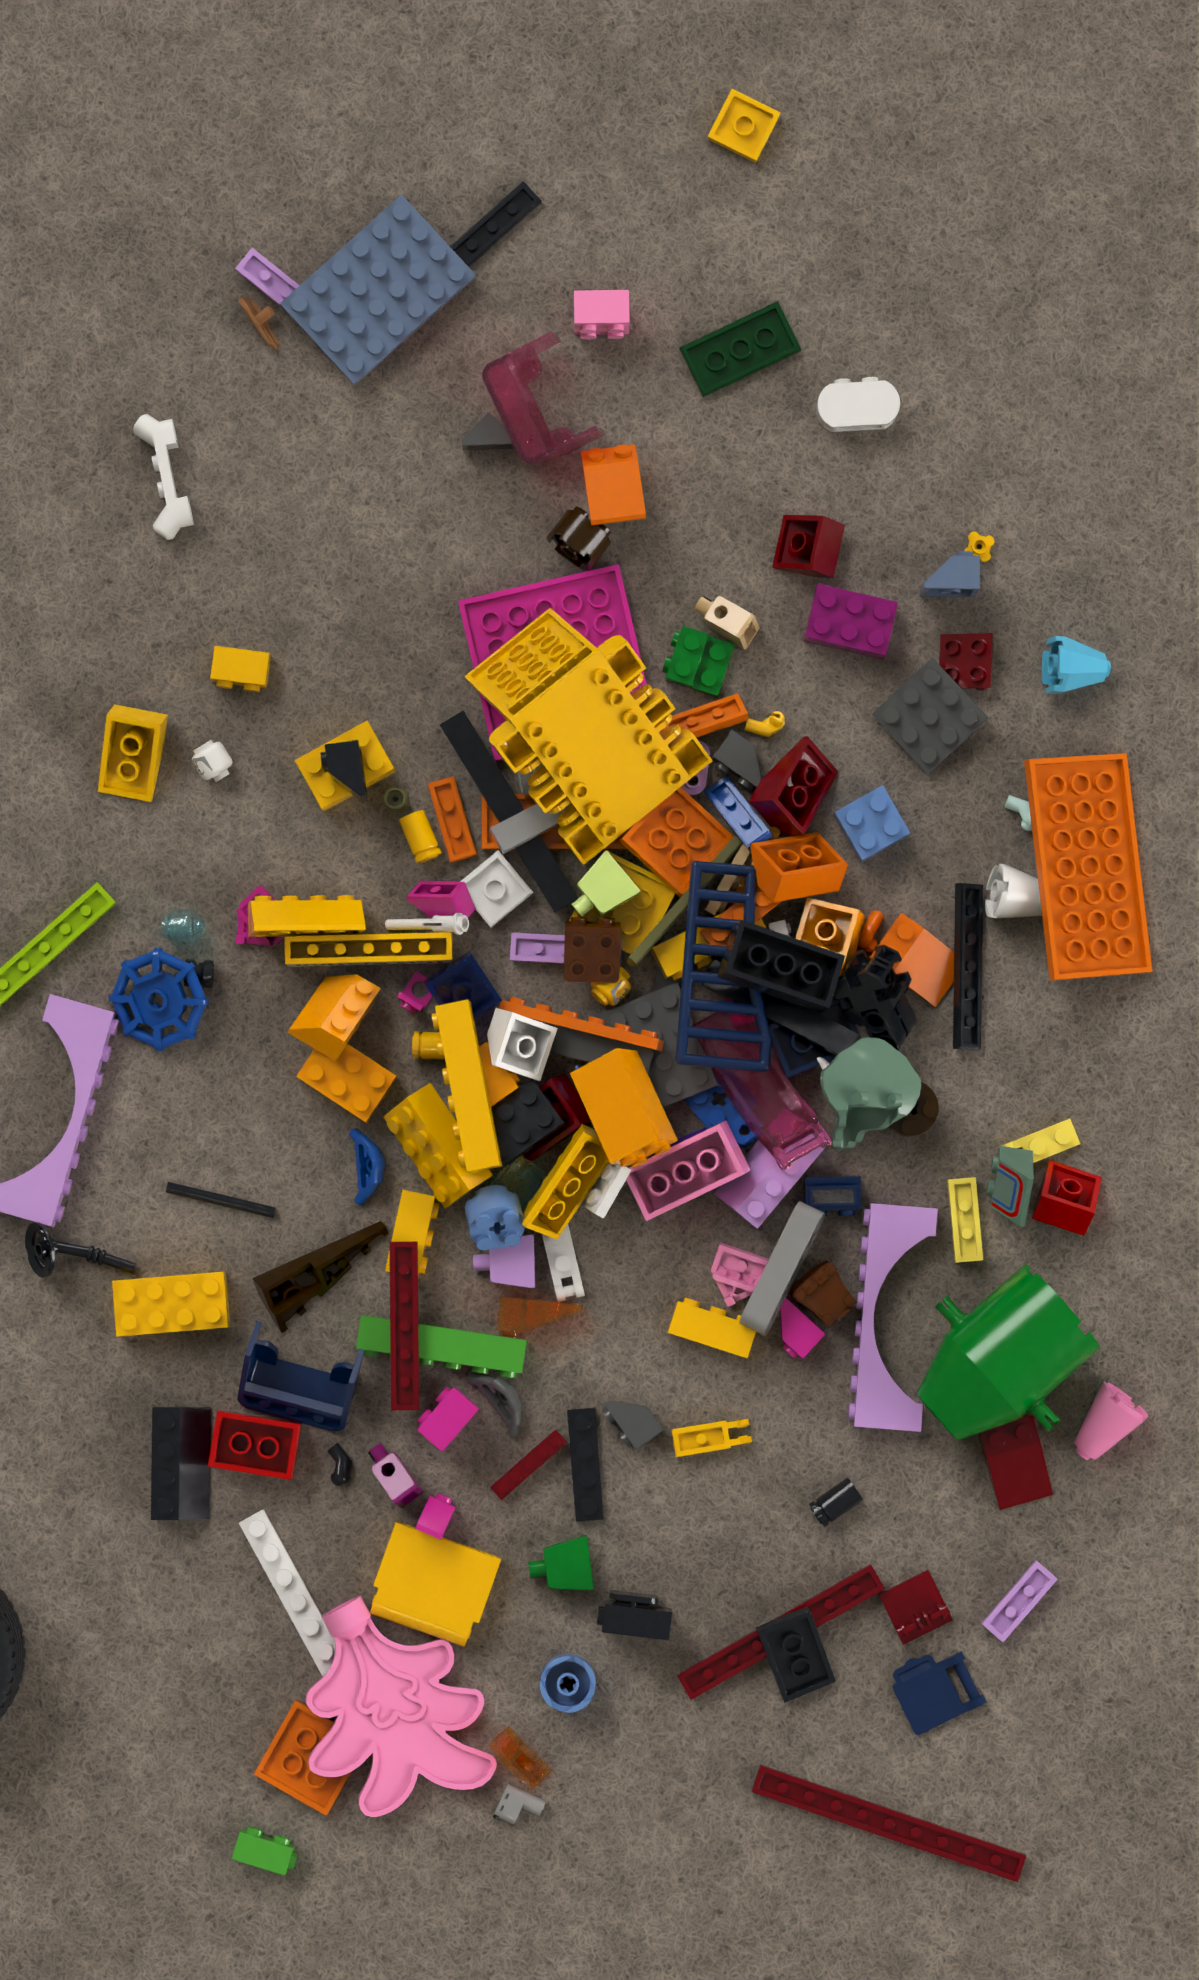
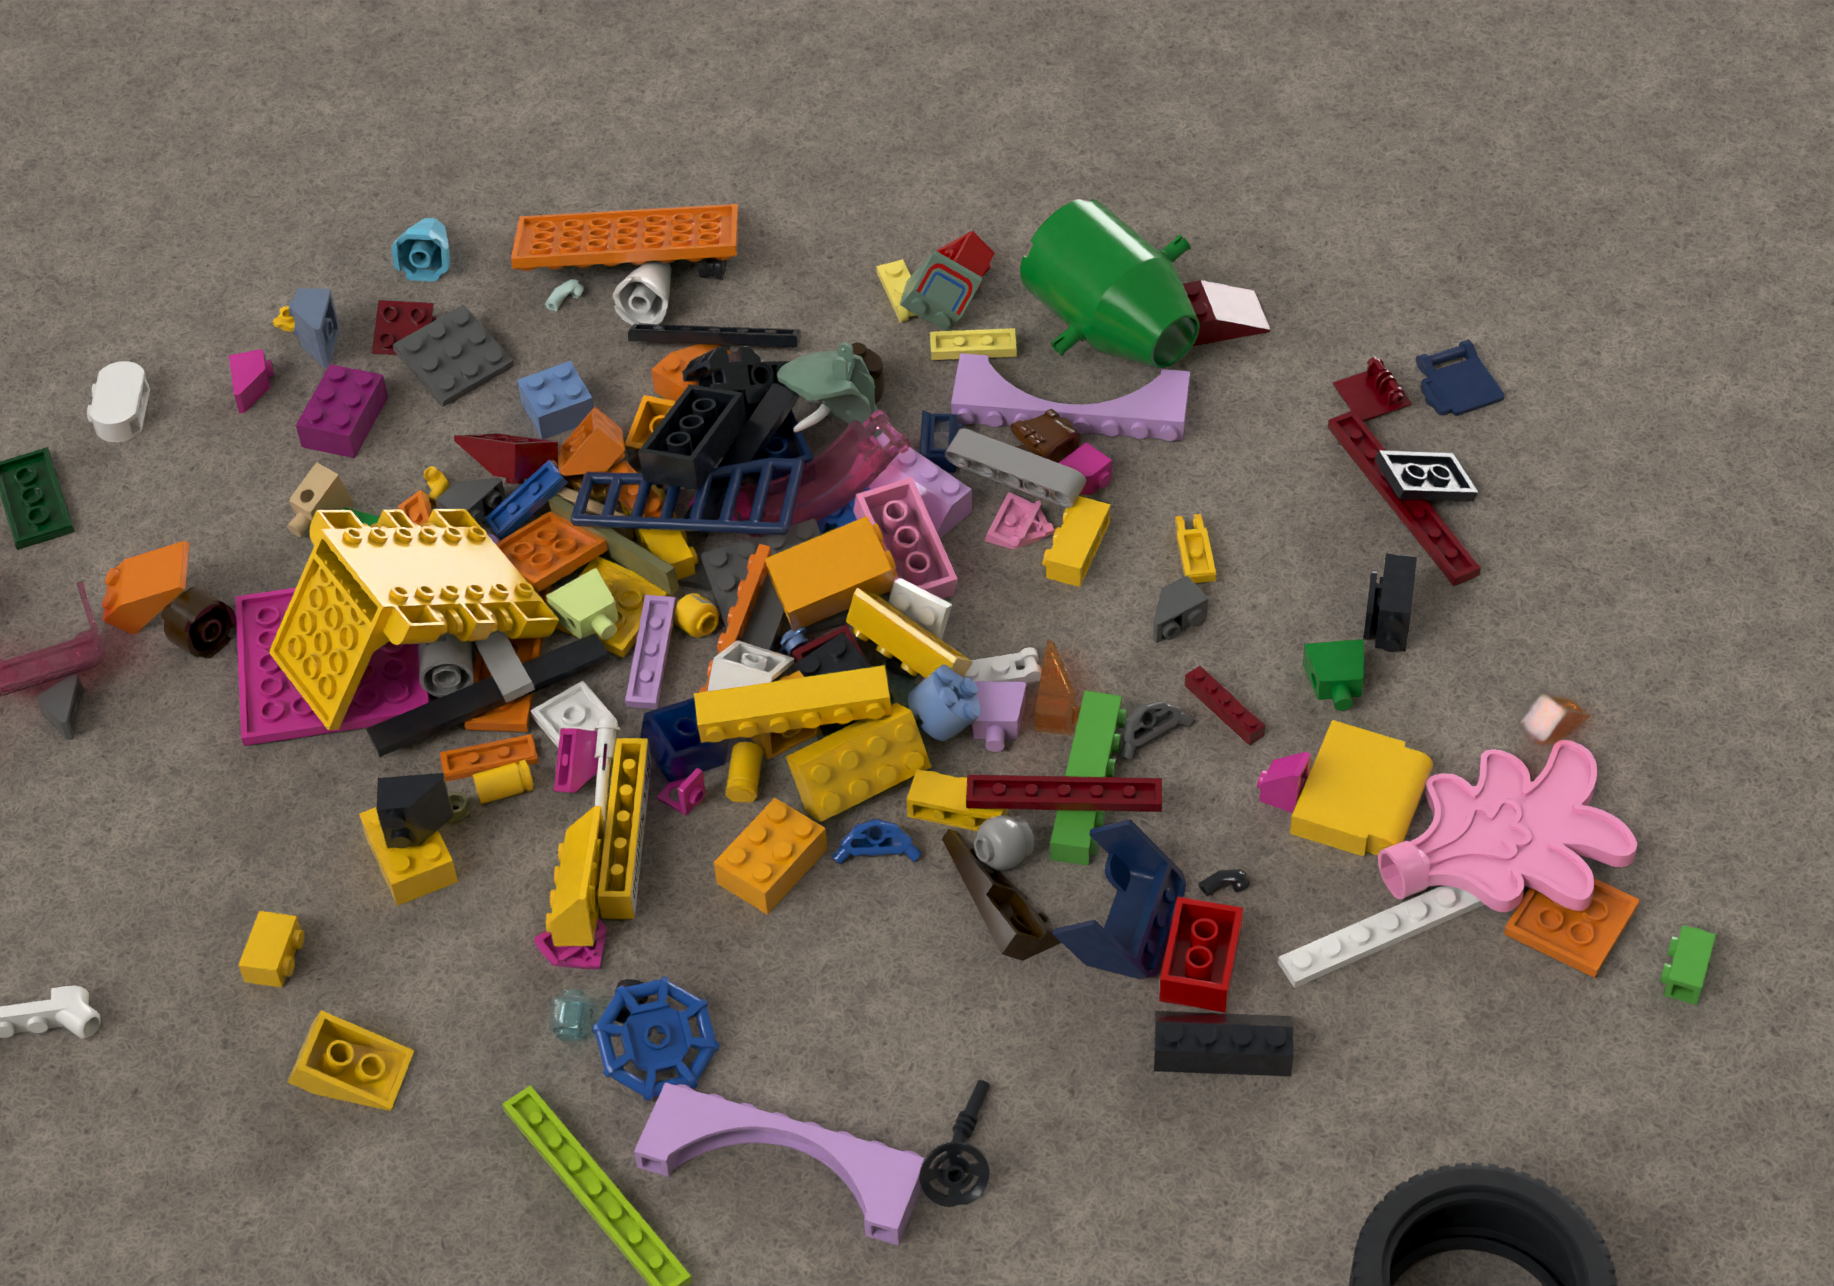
camera: 80 degrees left, 35 degrees down
(171, 1304) = (1029, 1040): yellow brick -> none
(212, 761) = (376, 980): white head -> none
(220, 1199) = (905, 994): black piece -> none
(334, 1013) = (695, 849): light orange slope -> none
(363, 1275) = (1004, 842): none -> light grey piece
(399, 1486) = (1240, 817): torso -> none
(447, 1418) = (1176, 758): dark pink brick -> none
(512, 1802) = (1607, 729): light grey piece -> none
(561, 1697) = (1468, 668): medium blue brick -> none
(585, 1464) = (1225, 657): black plate -> none
(592, 950) = (654, 613): reddish brown bracket -> none
(808, 545) = (254, 444): dark red slope -> none
(835, 1502) = (1263, 447): black piece -> none
(889, 1823) = (1597, 420): dark red plate -> none
(893, 524) = (250, 377): none -> dark pink slope
(1019, 1601) = (1362, 314): lavender plate -> none
(1107, 1421) = (1177, 221): bright pink cone -> none

